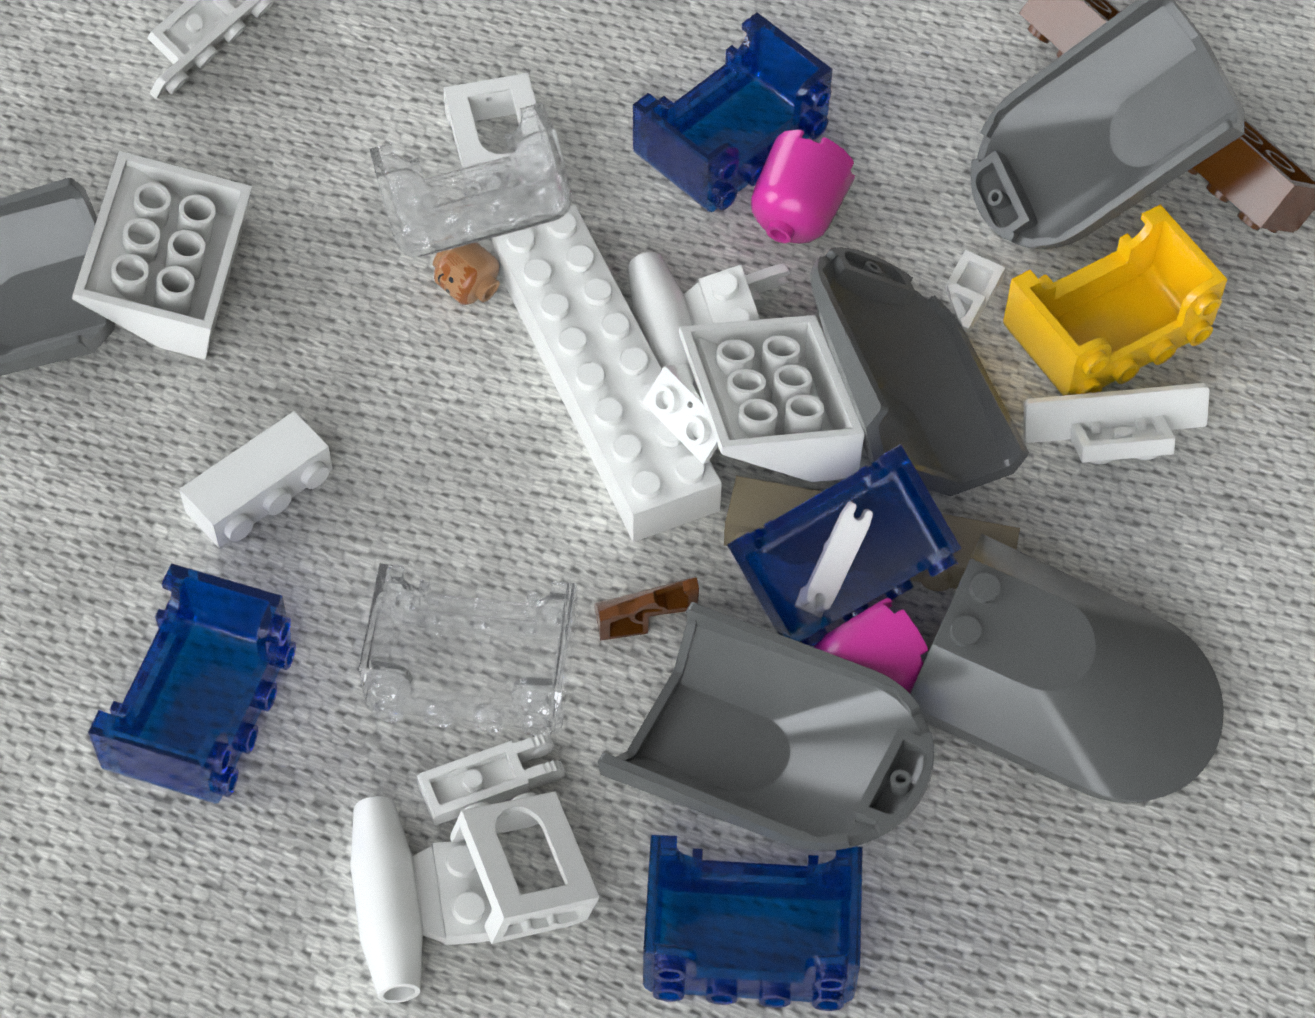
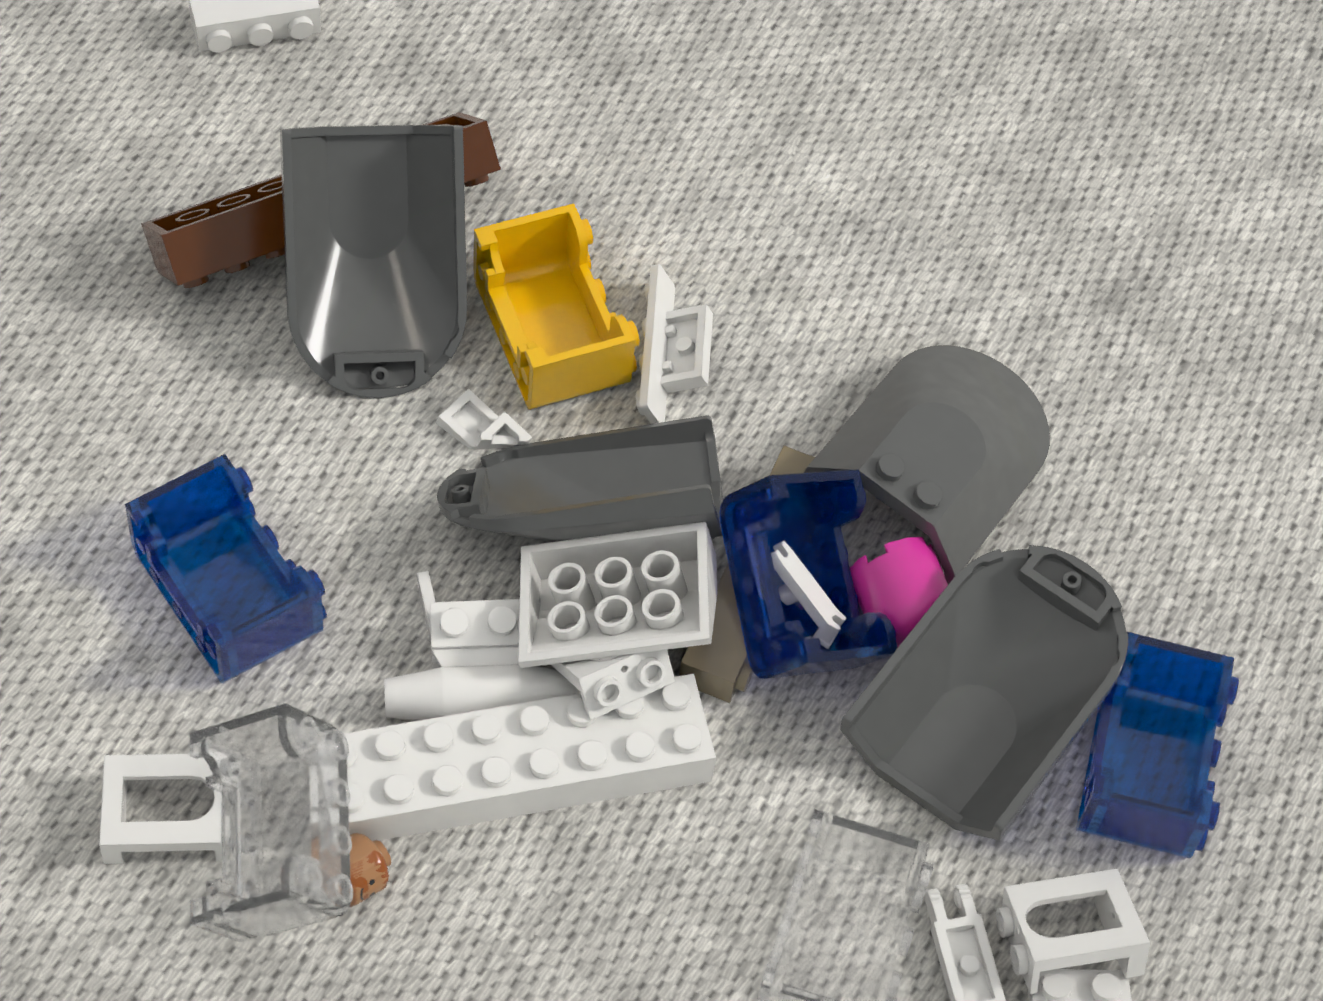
camera: 85 degrees left, 0 degrees up
(631, 613) = (805, 769): reddish brown slope -> none
(801, 187) = (340, 533): dark pink cylinder -> none

